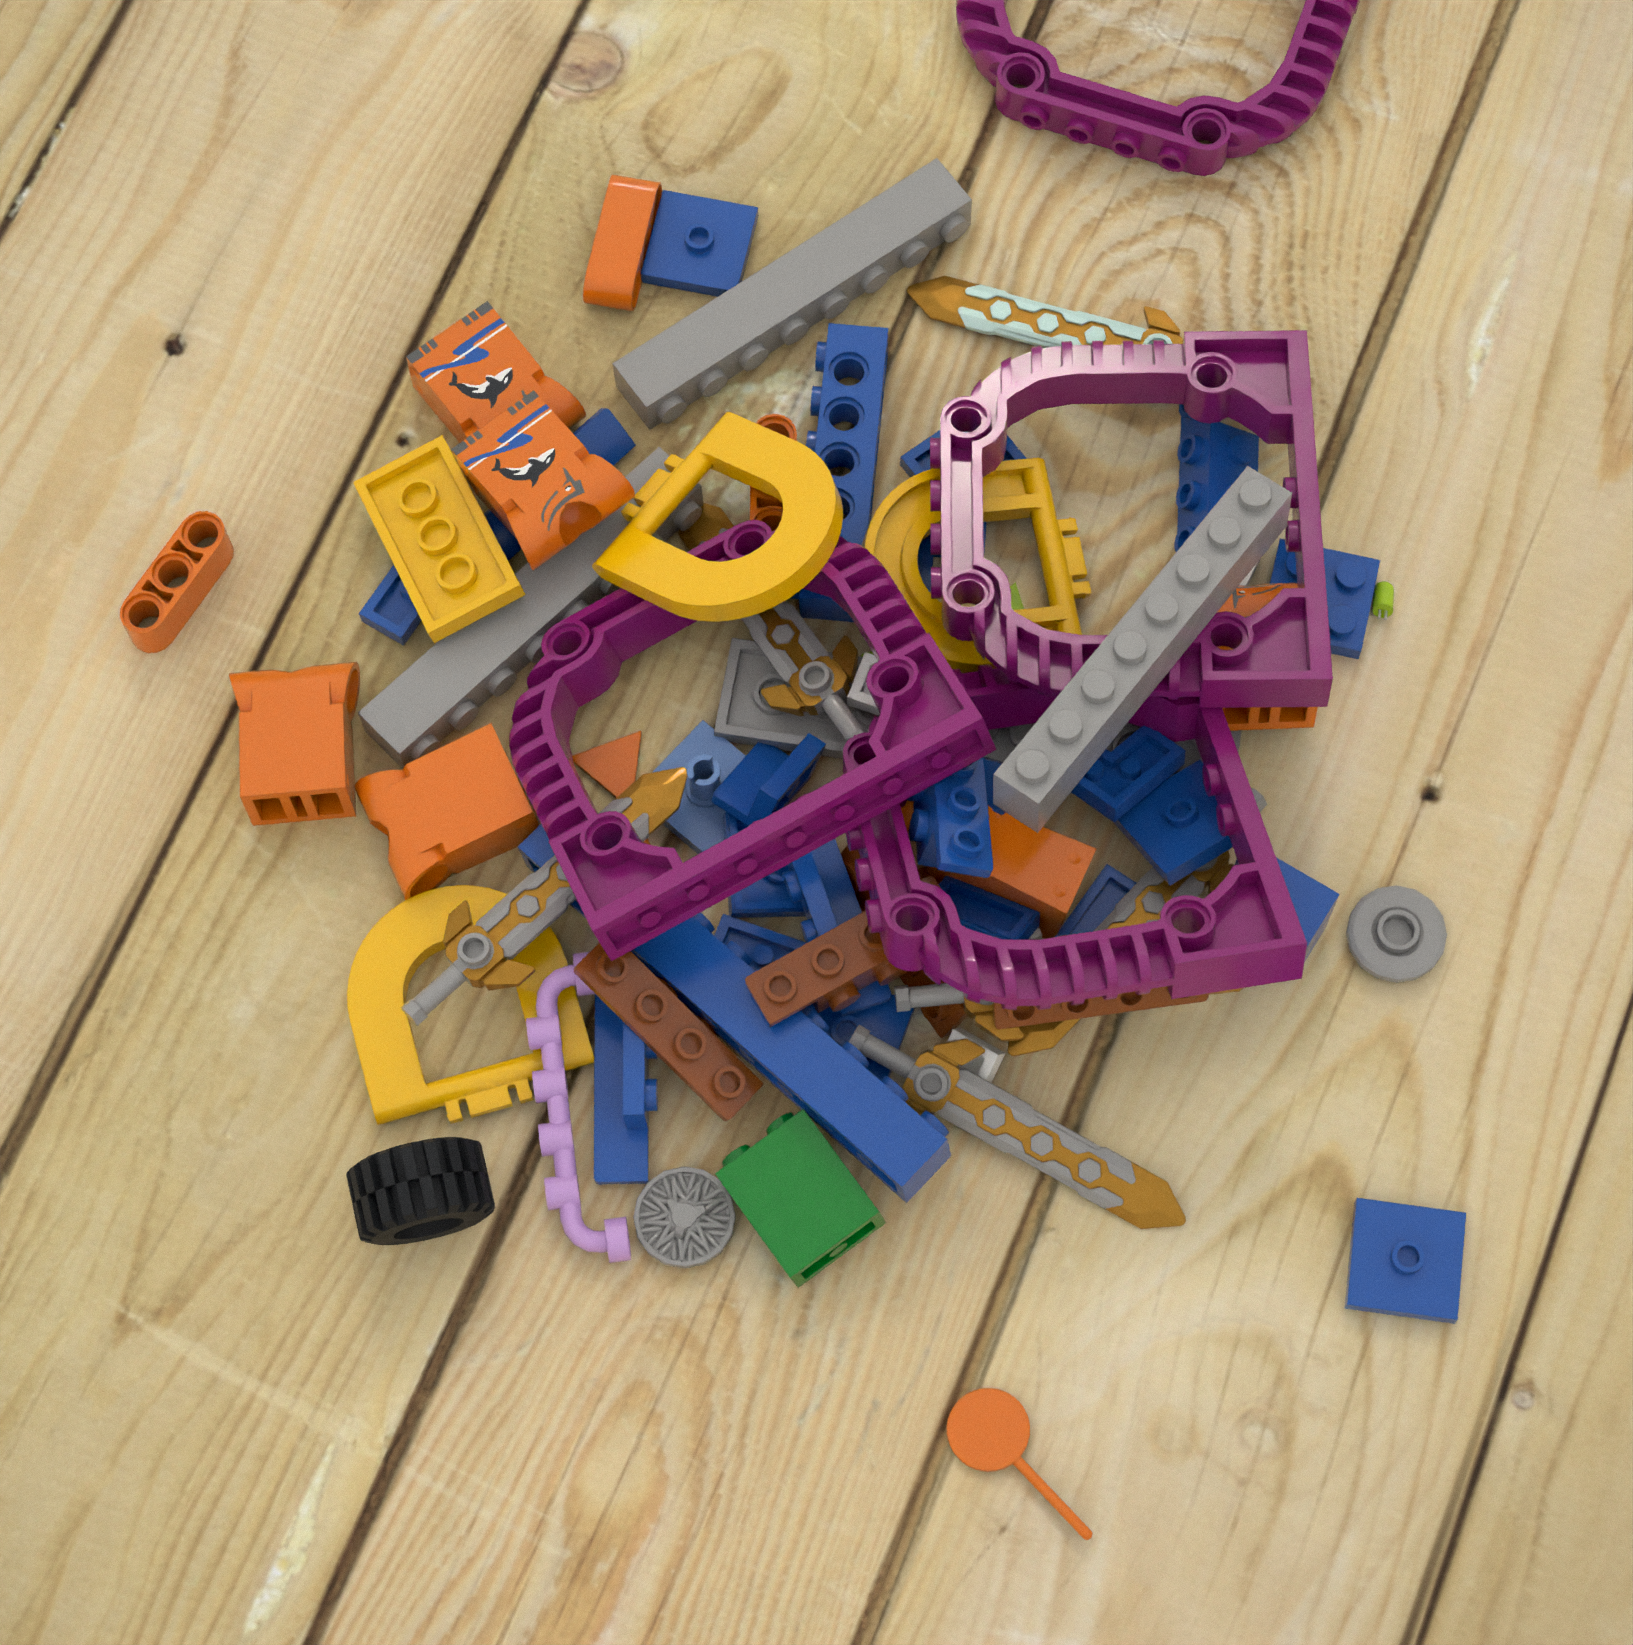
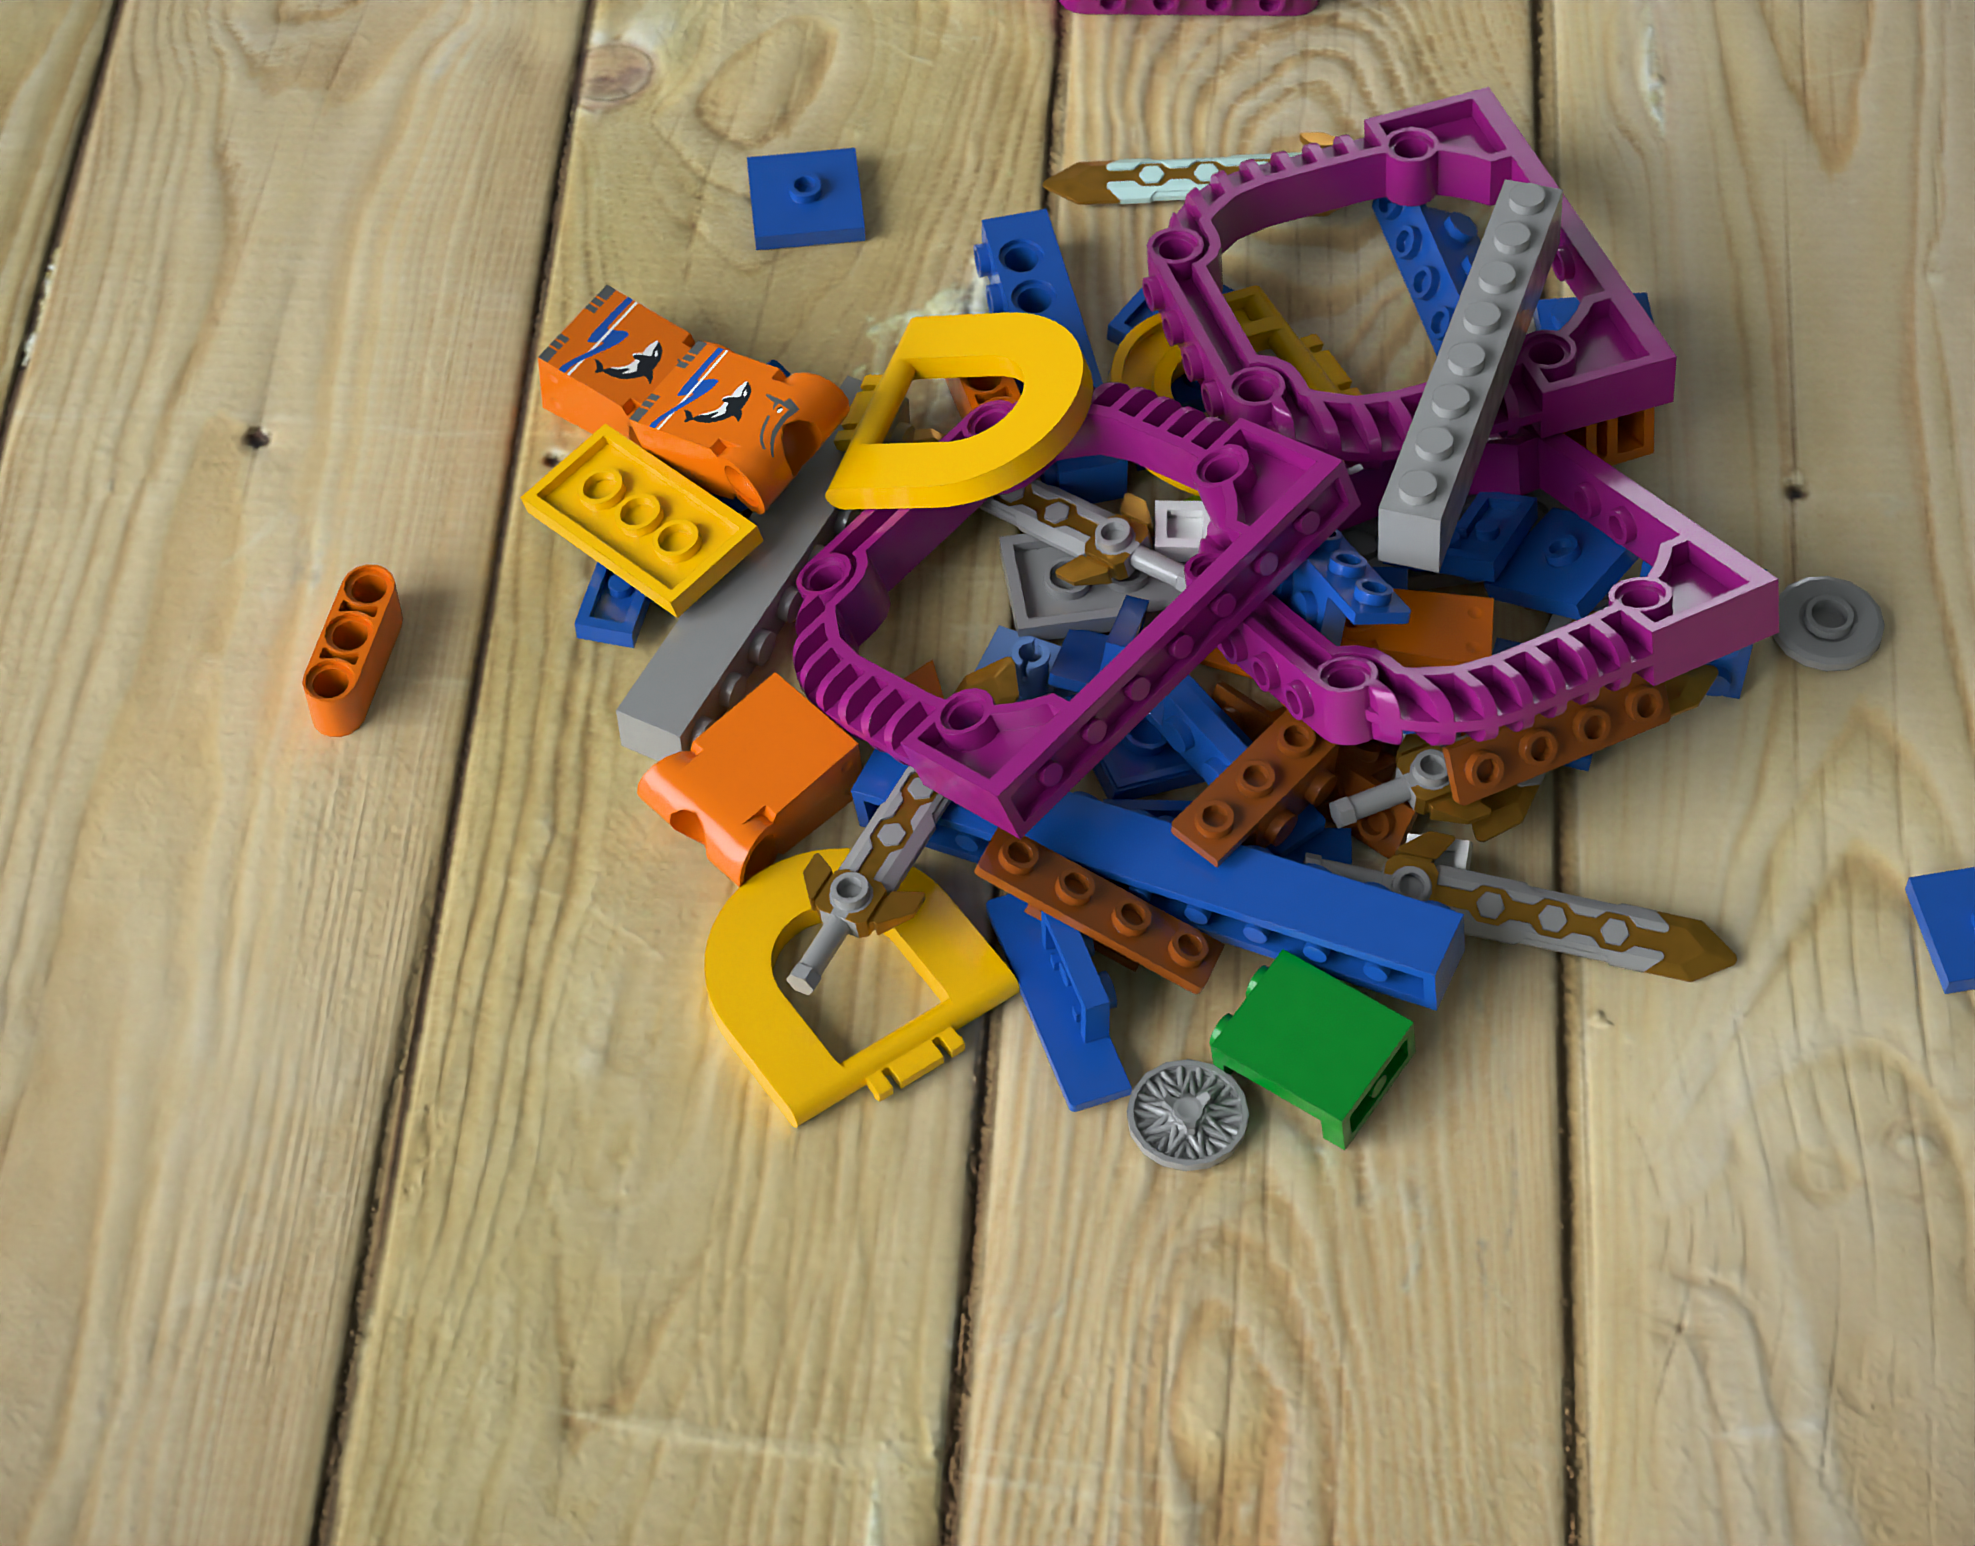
camera: 20 degrees left, 15 degrees down
(297, 742) = (553, 768): orange piece -> none
(420, 1191) = (885, 1156): black tyre -> none
(557, 1135) = (1014, 1066): lavender bar -> none
(621, 243) = (724, 213): orange beam -> none
(793, 294) = (924, 215): light grey brick -> none
(991, 1433) = (1629, 1231): orange piece -> none
(1383, 600) = (1667, 329): lime piece -> none

